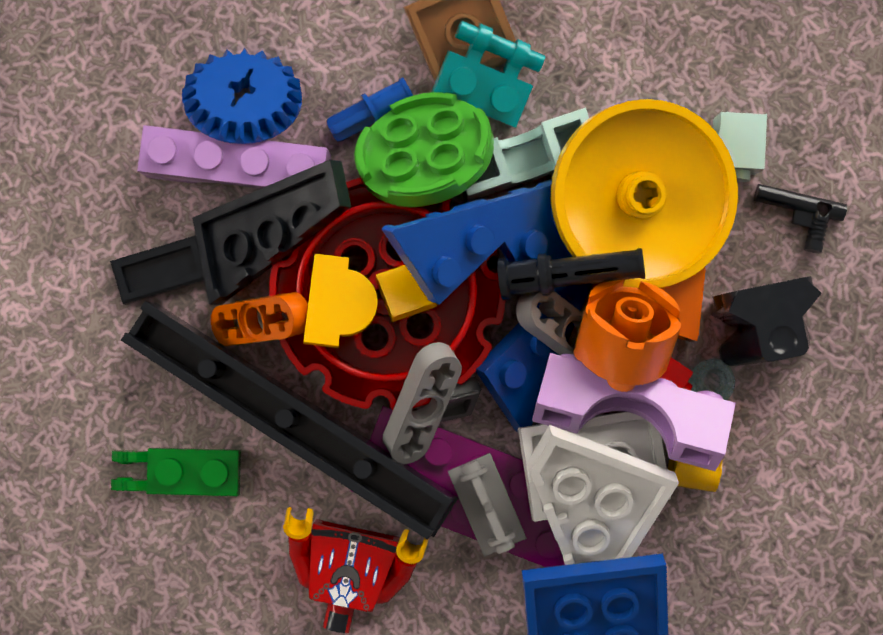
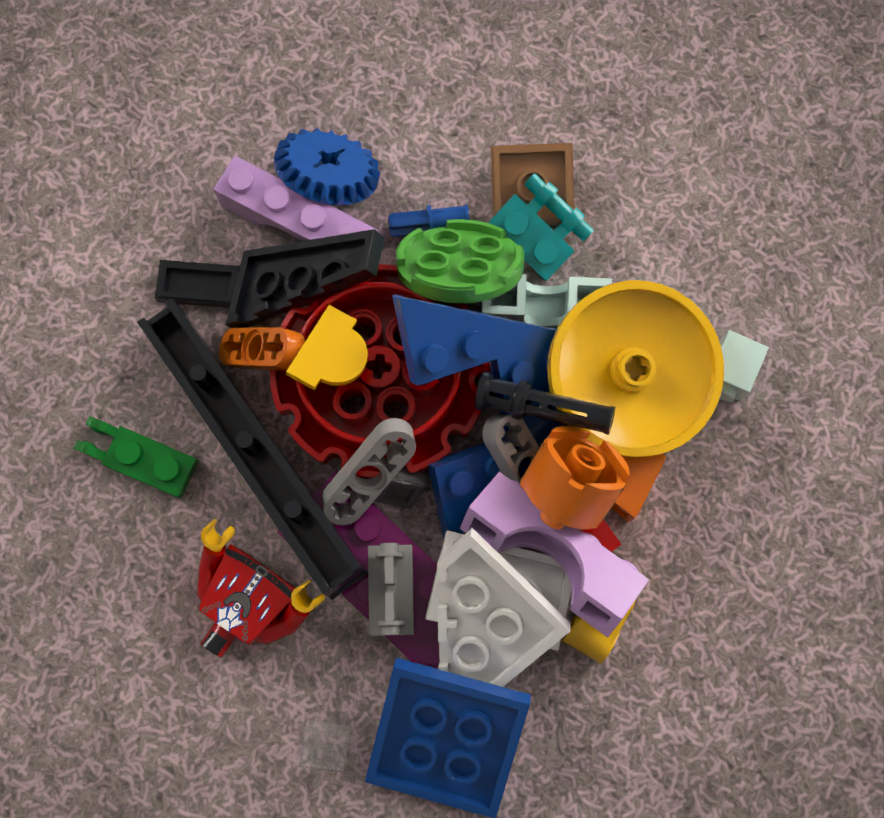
camera: 25 degrees right, 10 degrees down
(402, 293) = (390, 370): yellow tile -> none
(719, 368) = (645, 554): clear light blue plate -> none
(767, 321) = (705, 524): black piece -> none
(804, 213) = (772, 449): black hose -> none

